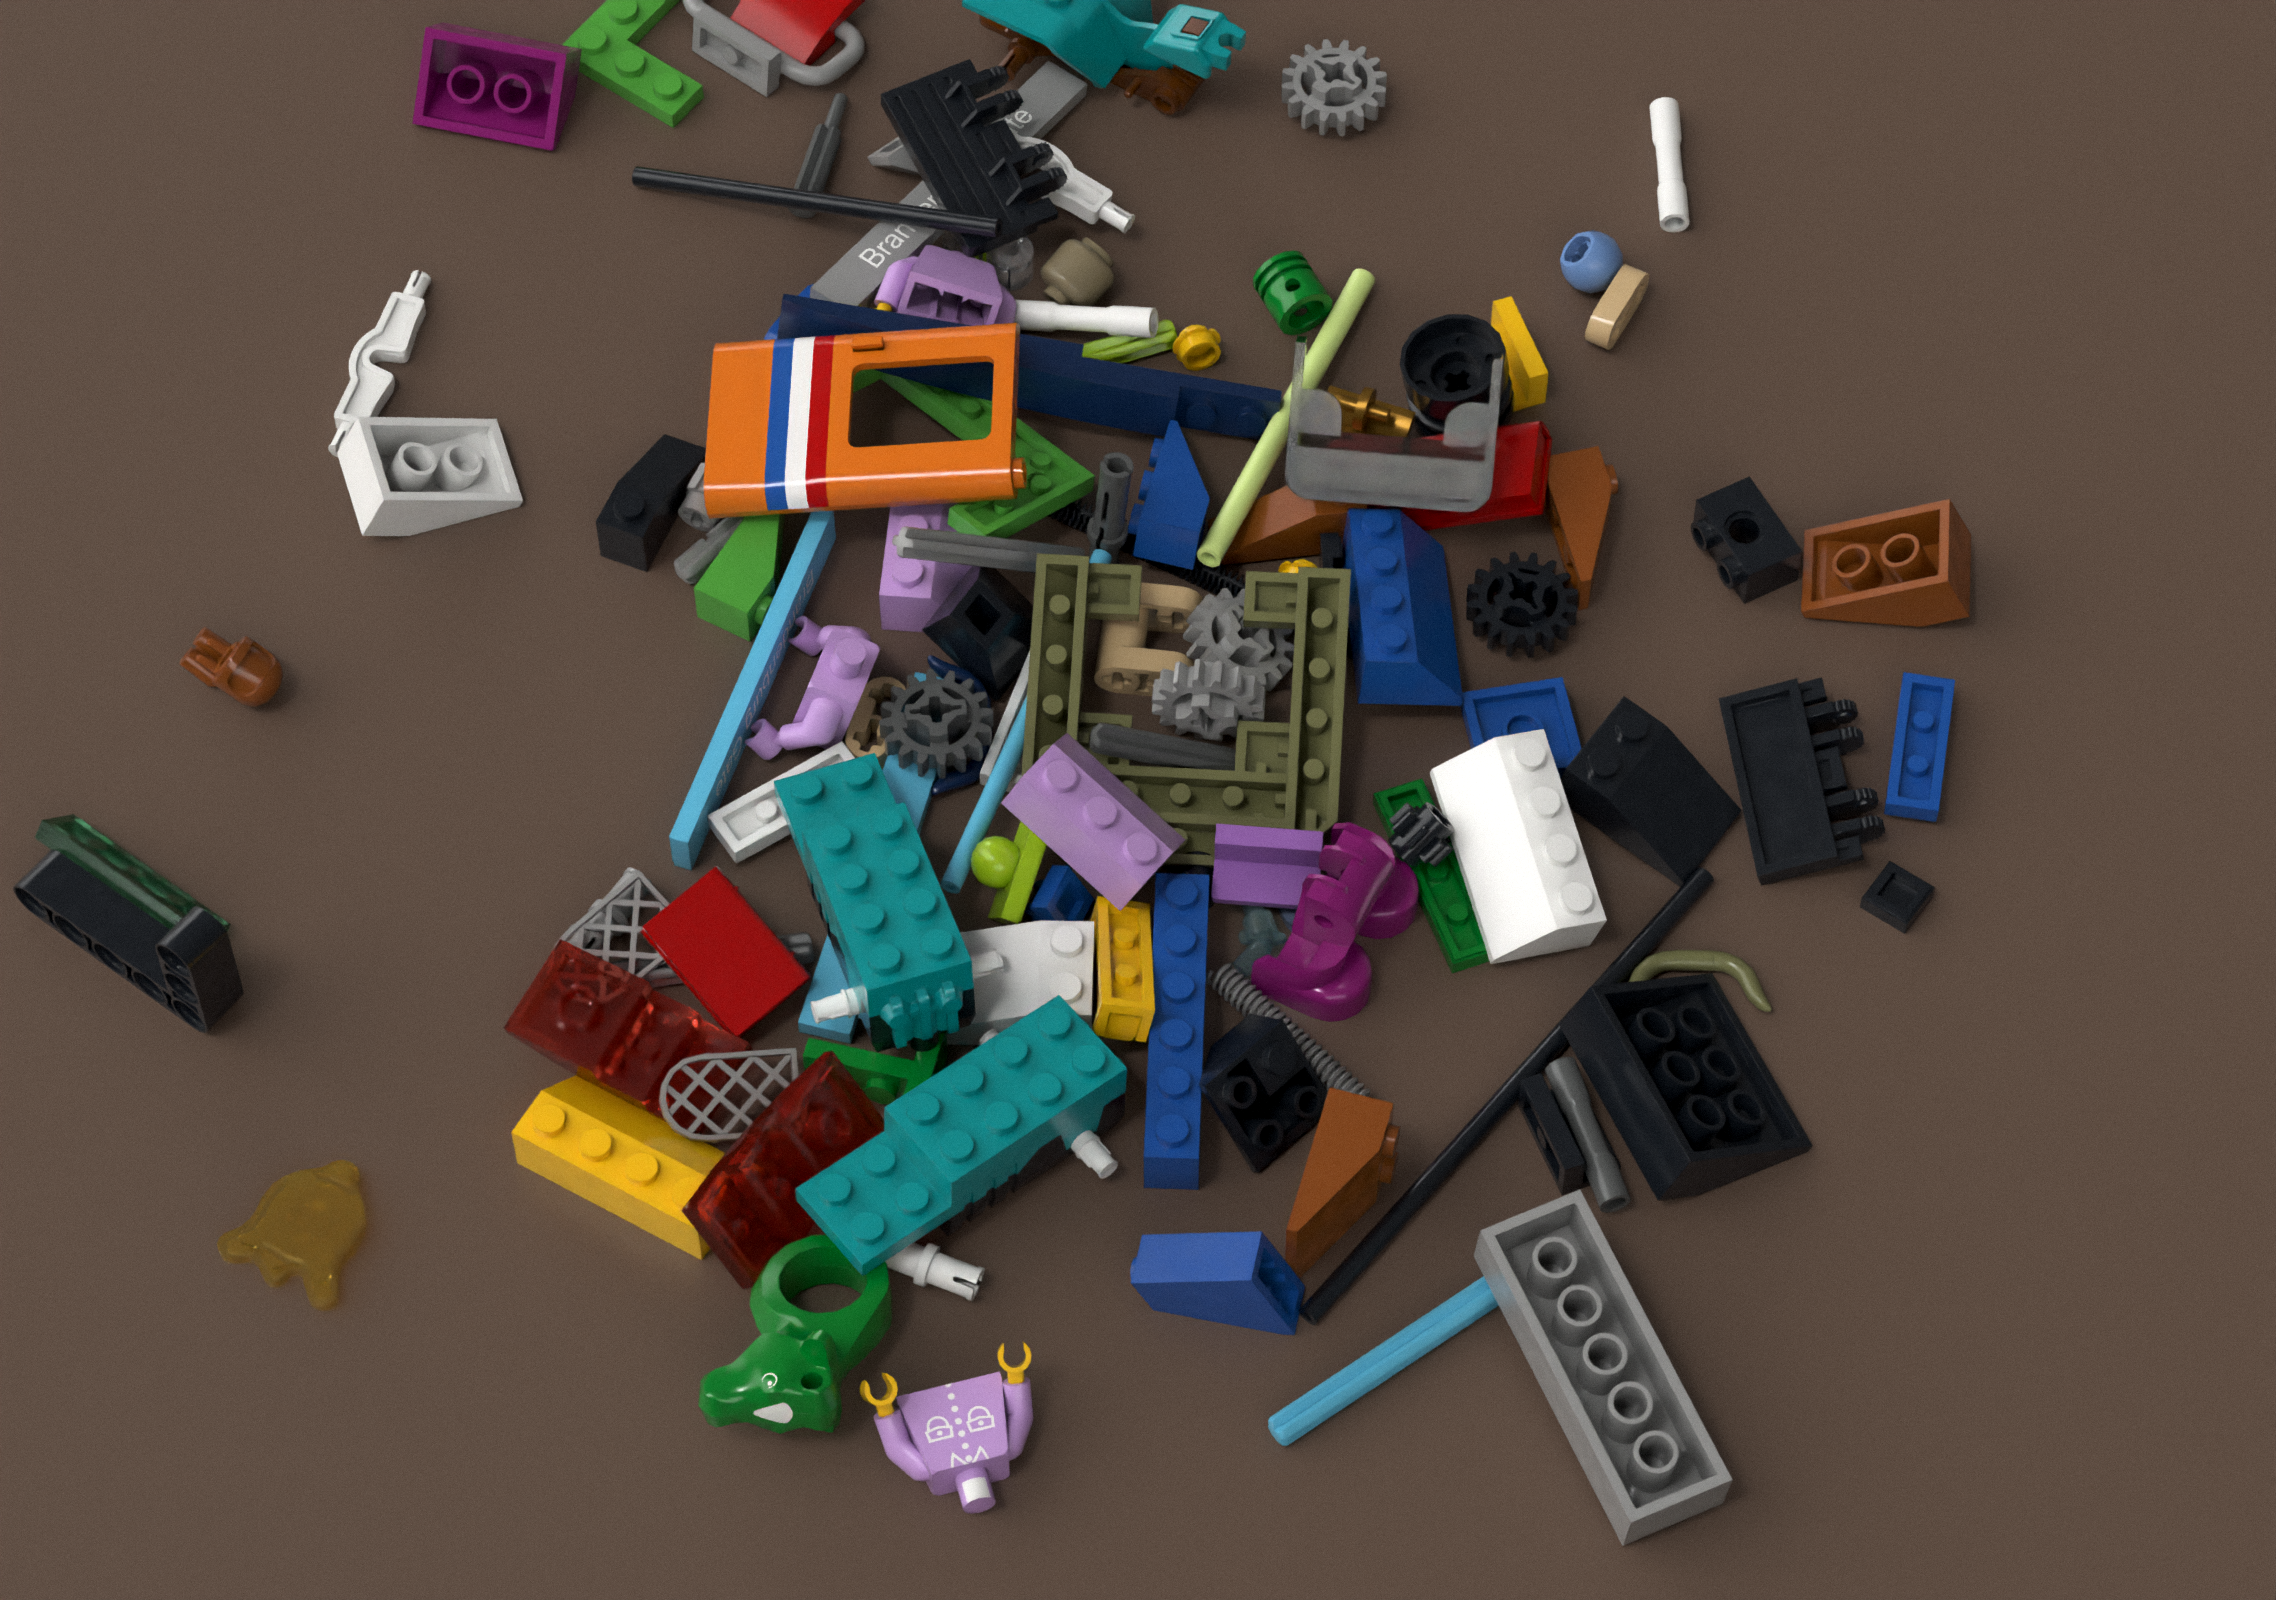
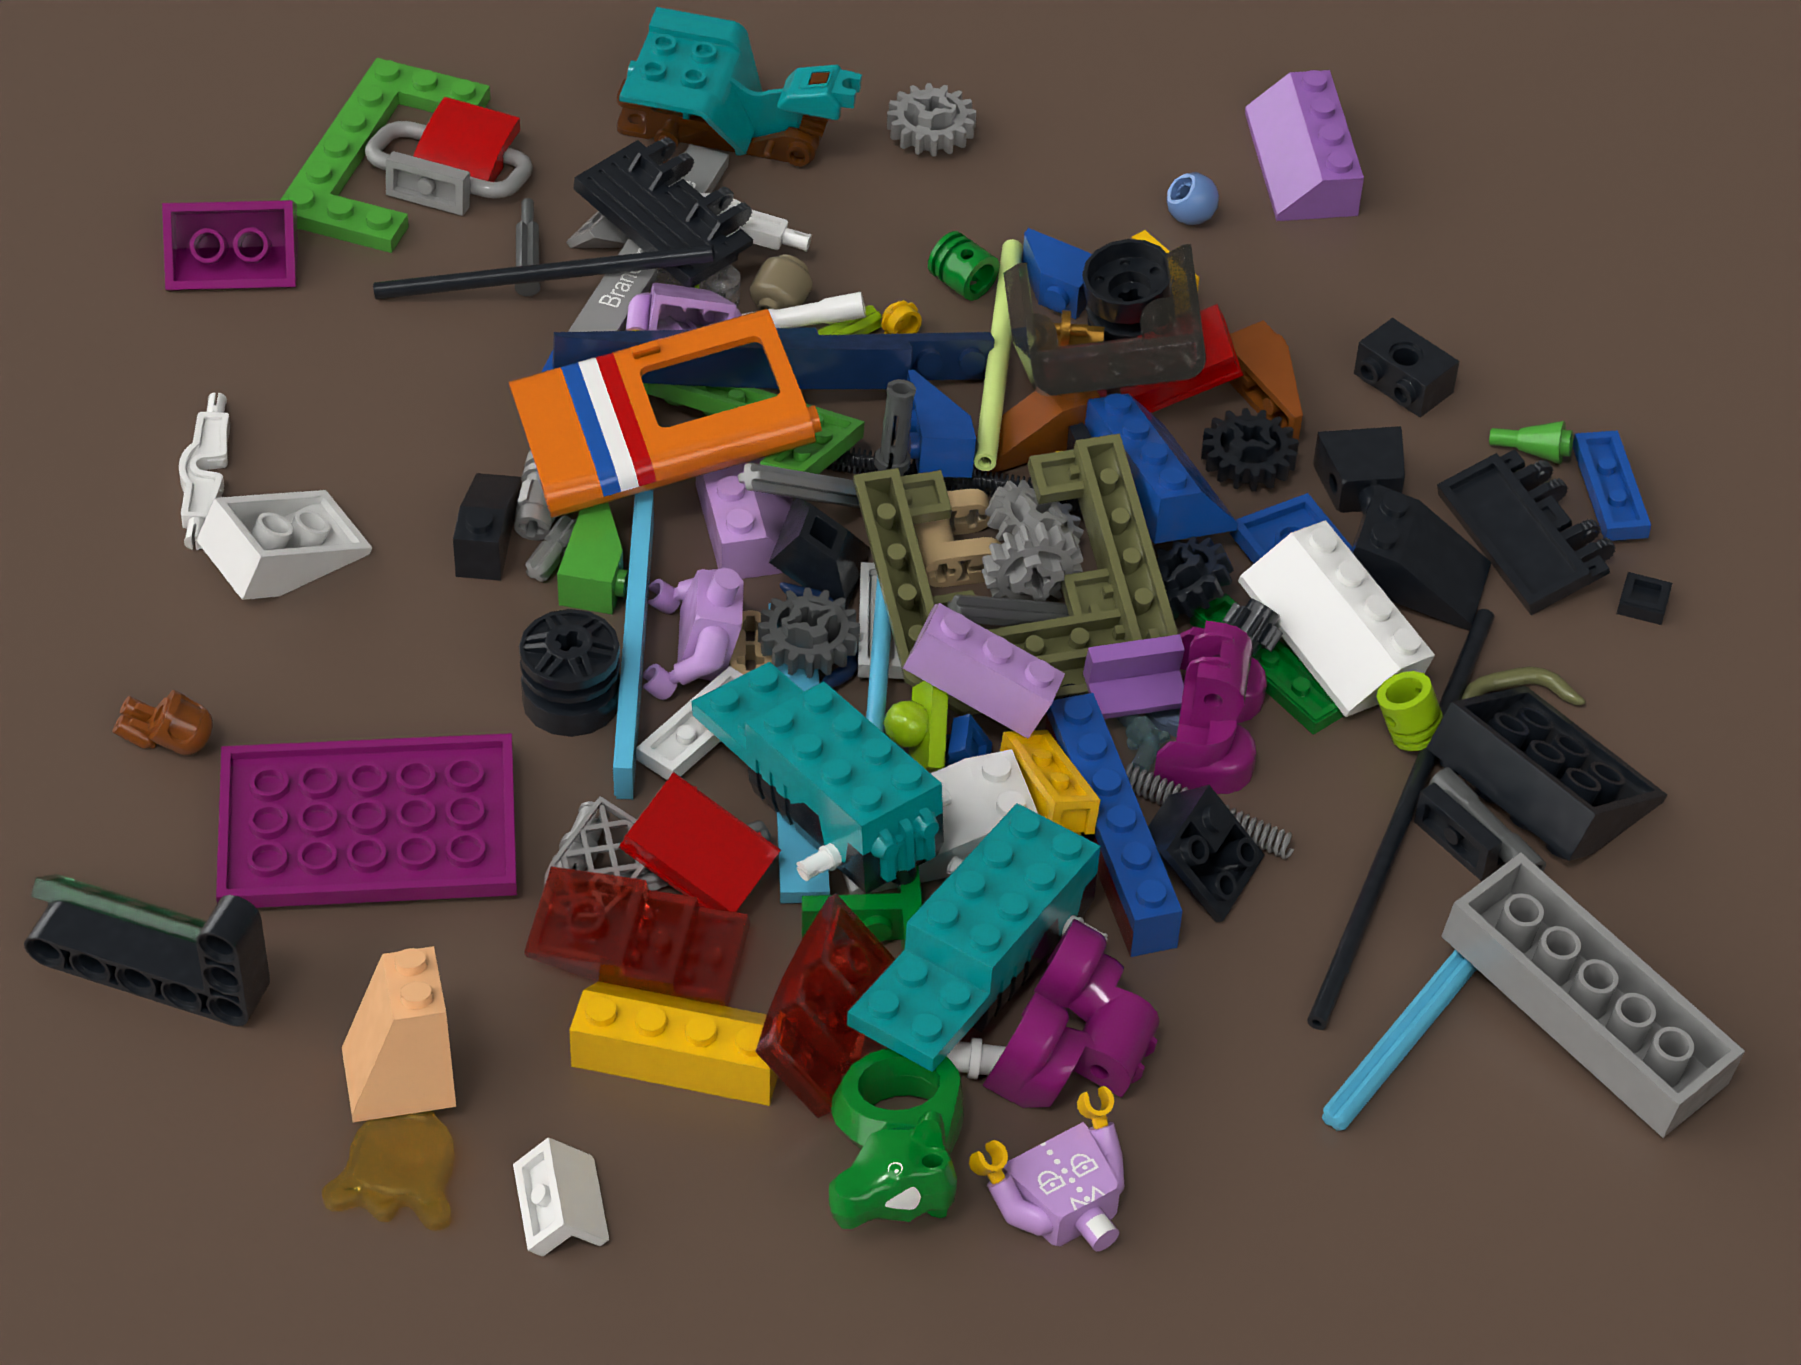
camera: 20 degrees left, 10 degrees down
(342, 1102) = (400, 1041): none -> light nougat slope
(403, 831) = (367, 820): none -> magenta plate
(450, 1309) = (559, 1197): none -> white panel
(665, 709) = (570, 672): none -> black wheel
(716, 1059) = (728, 933): light grey window -> none
(1069, 1290) = (1108, 1048): none -> magenta piece
(1219, 1279) = (1233, 1006): blue slope -> none
(1342, 1174) = (1302, 894): dark orange slope -> none
(1381, 752) = (1193, 574): none -> black gear
(1392, 318) = (1055, 272): none -> blue slope
(1555, 975) = (1409, 709): none -> lime piece
(1616, 306) = (1225, 227): tan beam -> none
(1641, 657) = (1356, 461): none -> black torso
(1671, 188) = (1227, 139): white piece -> none
(1753, 221) = (1305, 148): none -> medium lavender slope
(1869, 672) = (1545, 441): none -> bright green cone
(1890, 568) = (1527, 363): dark orange slope -> none

